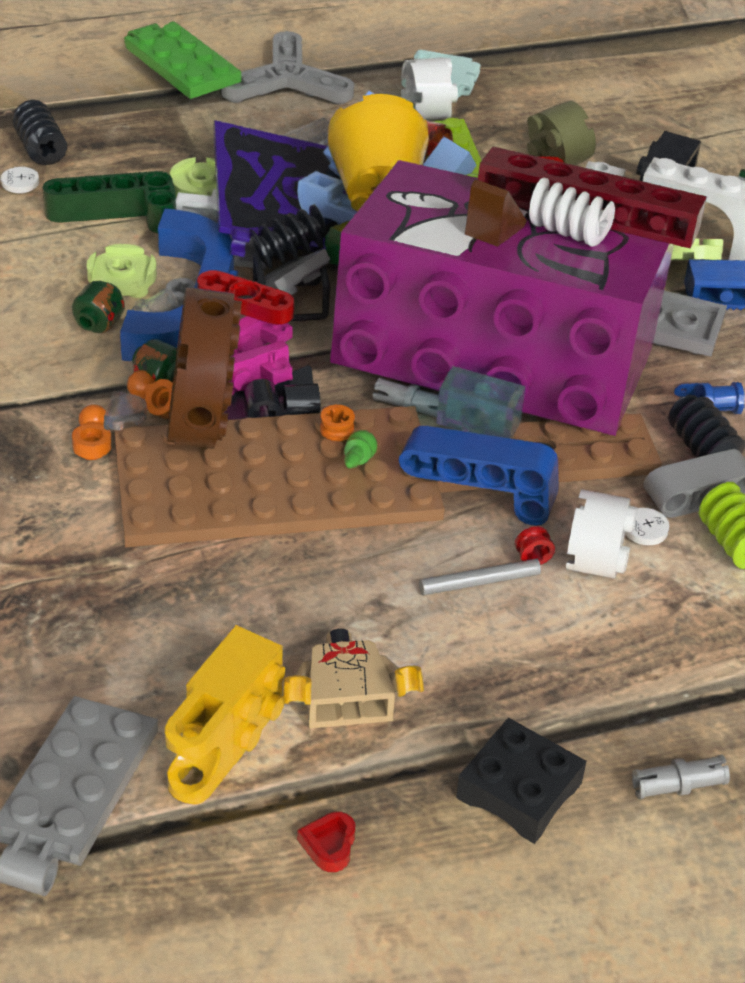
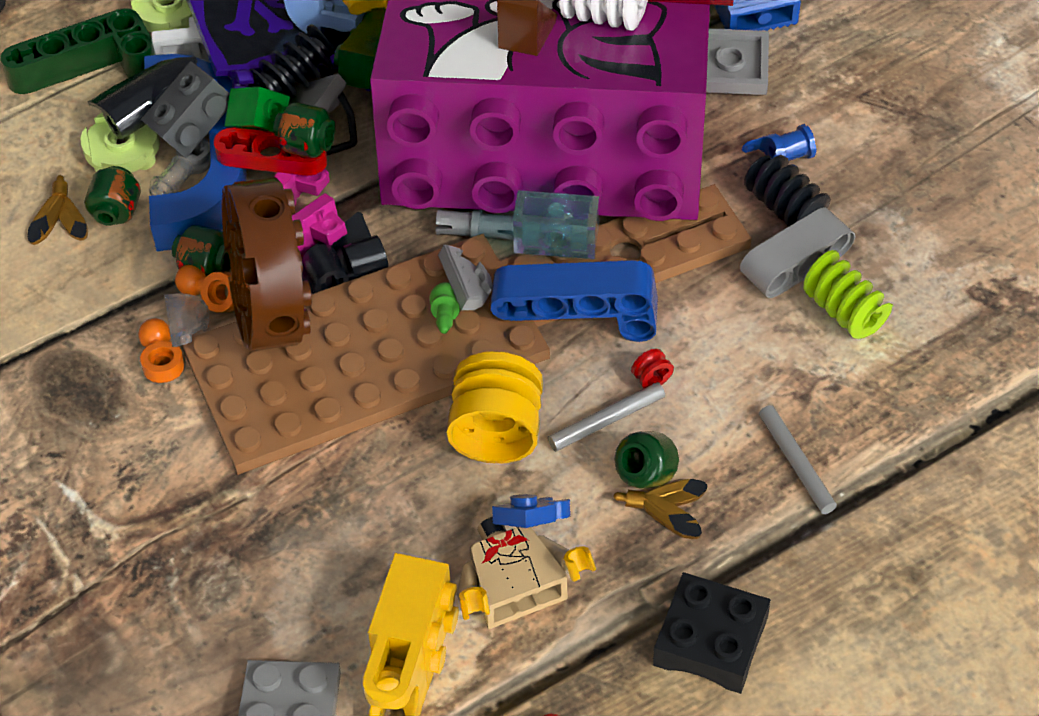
camera: 10 degrees left, 10 degrees up
(48, 307) = (56, 208): none -> pearl gold piece
(135, 241) = (132, 98): none -> black panel
(186, 251) = (188, 109): none -> dark grey brick
(245, 259) = (254, 108): none -> green brick
(278, 281) = (304, 130): none -> dark green head
(337, 422) = (414, 289): orange bush -> none
(375, 539) = (495, 407): none -> yellow wheel
(375, 628) = (529, 511): none -> blue plate
(385, 435) = (469, 282): none -> light grey tile
(504, 616) = (646, 459): none -> dark green head
(512, 663) = (663, 505): none -> pearl gold piece
(600, 533) = (715, 343): white brick -> none
(650, 527) = (754, 315): white piece -> none
(651, 655) = (797, 459): none -> light grey bar
(680, 776) = (861, 588): light grey pin -> none

